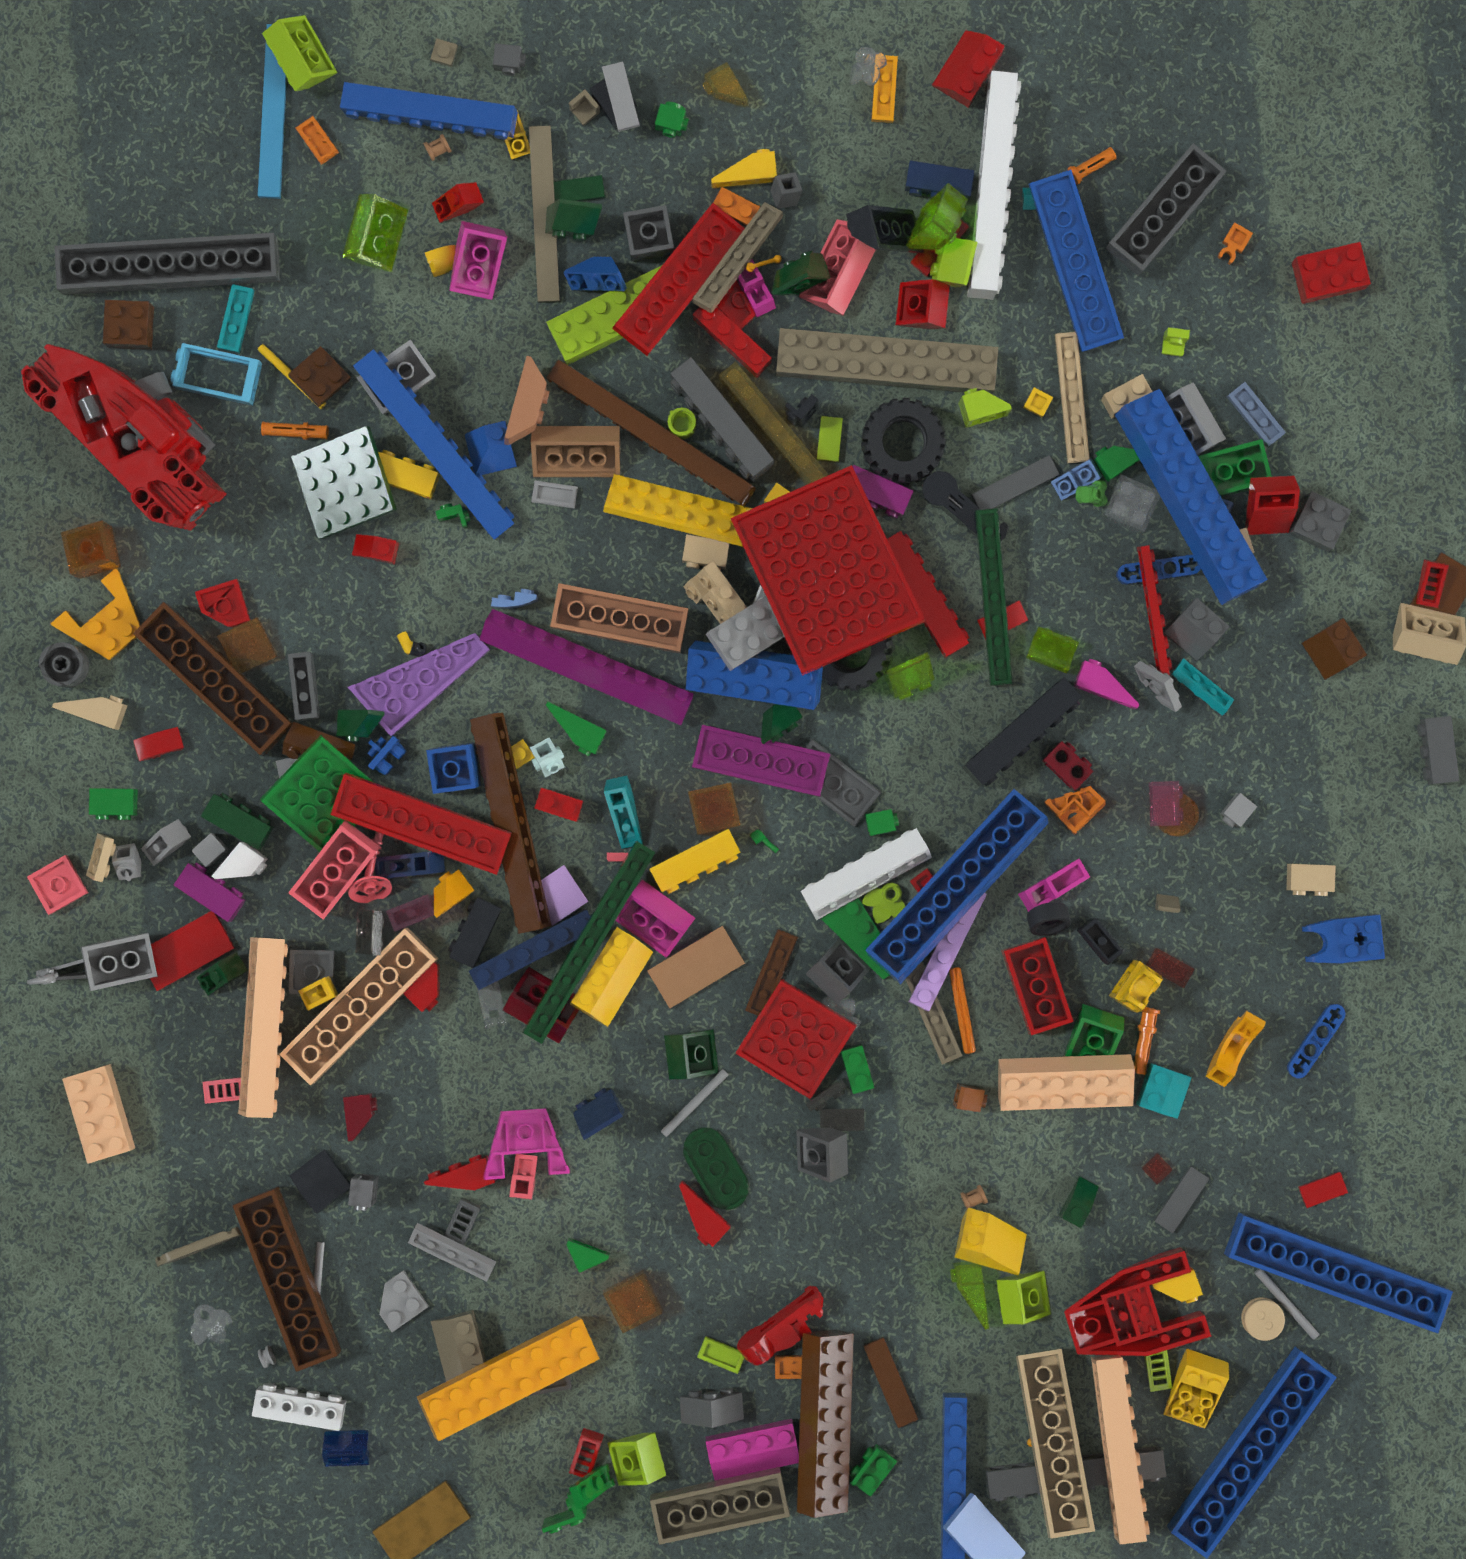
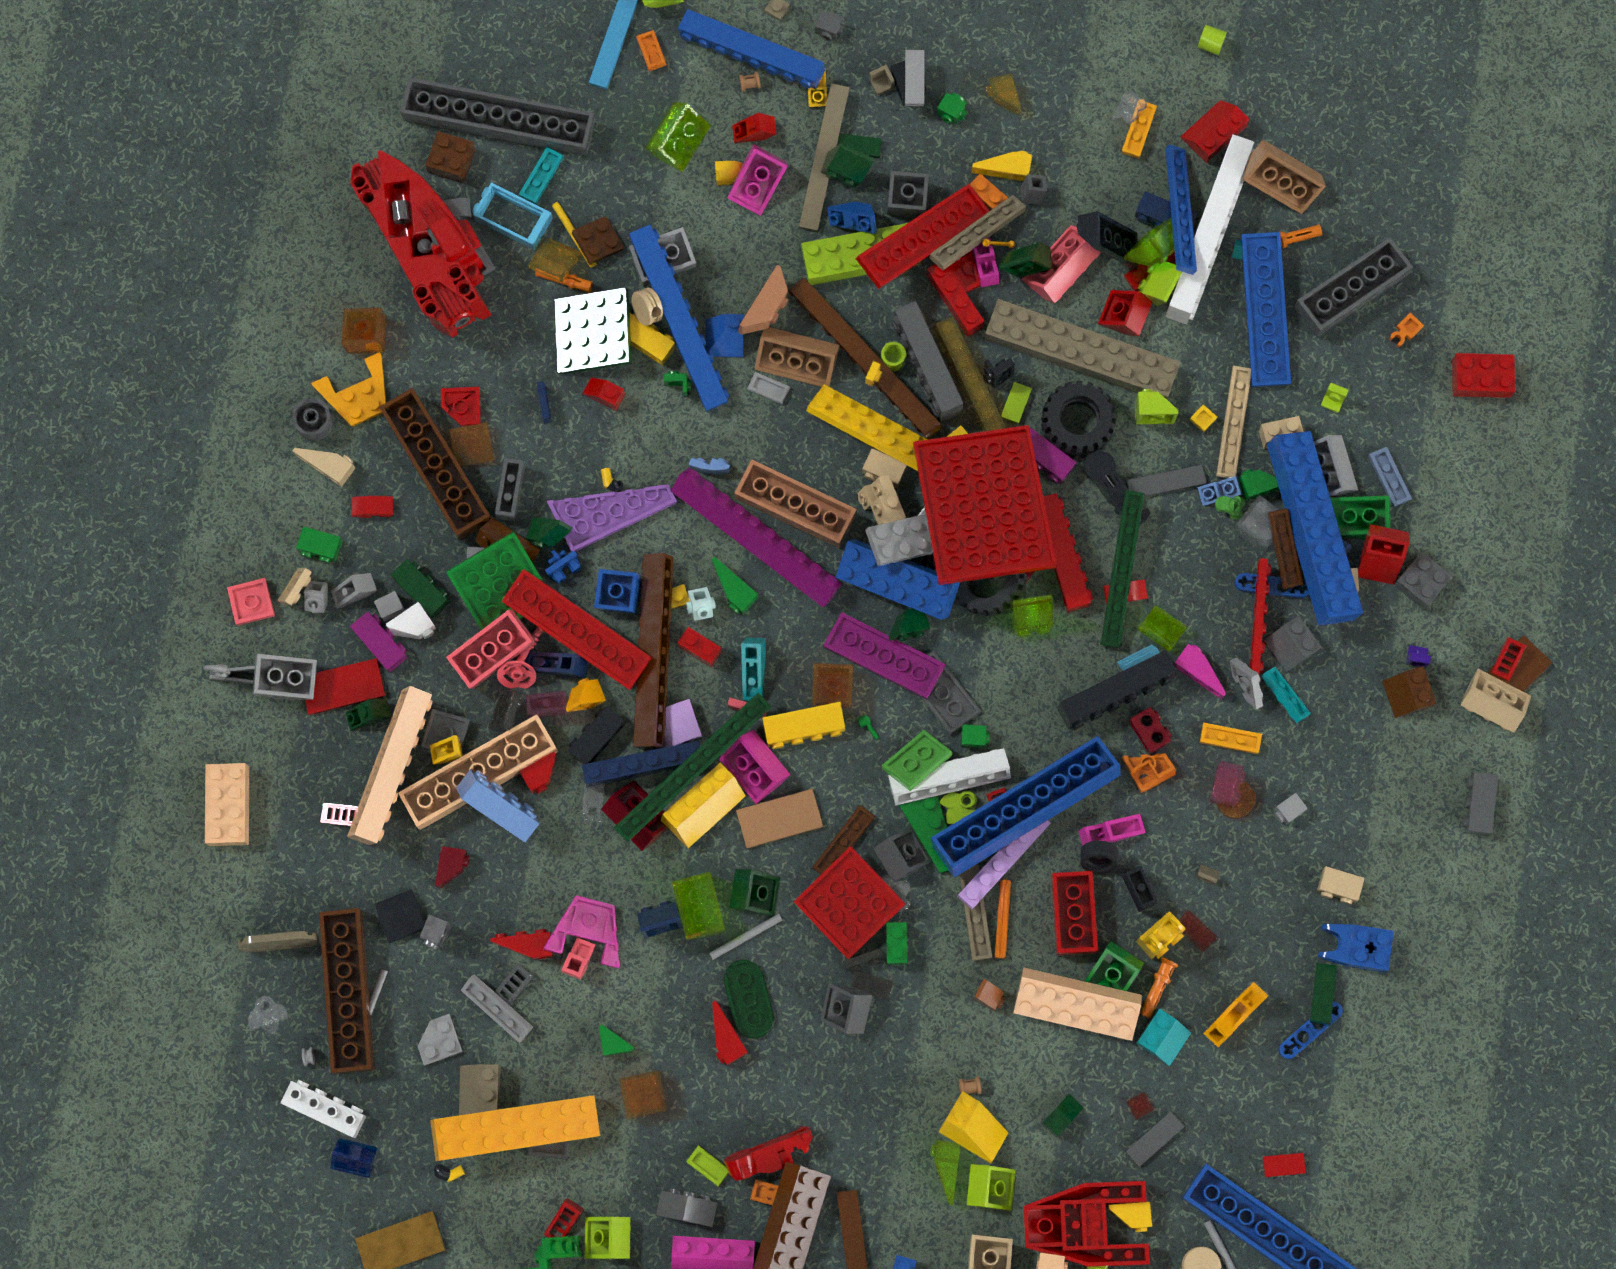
camera: 20 degrees right, 10 degrees down
(278, 412) = (554, 260): none -> clear yellow slope
(313, 577) = (544, 402): none -> dark blue tile
(390, 1040) = (498, 805): none -> medium blue brick
(396, 441) = (647, 306): none -> tan head
(452, 1439) = (446, 1174): none -> arm
(636, 1087) = (698, 906): none -> clear neon green slope
(667, 451) = (874, 374): none -> yellow plate
(826, 866) = (916, 760): none -> bright green tile
(956, 173) = (1181, 210): none -> blue plate
(1035, 689) = (1138, 657): none -> medium azure tile
(1059, 104) = (1283, 177): none -> medium nougat slope
(1155, 750) = (1230, 738): none -> light orange plate
(1164, 527) = (1285, 548): none -> reddish brown tile
(1321, 999) = (1323, 994): none -> dark green tile
(1334, 606) = (1418, 656): none -> dark purple bracket

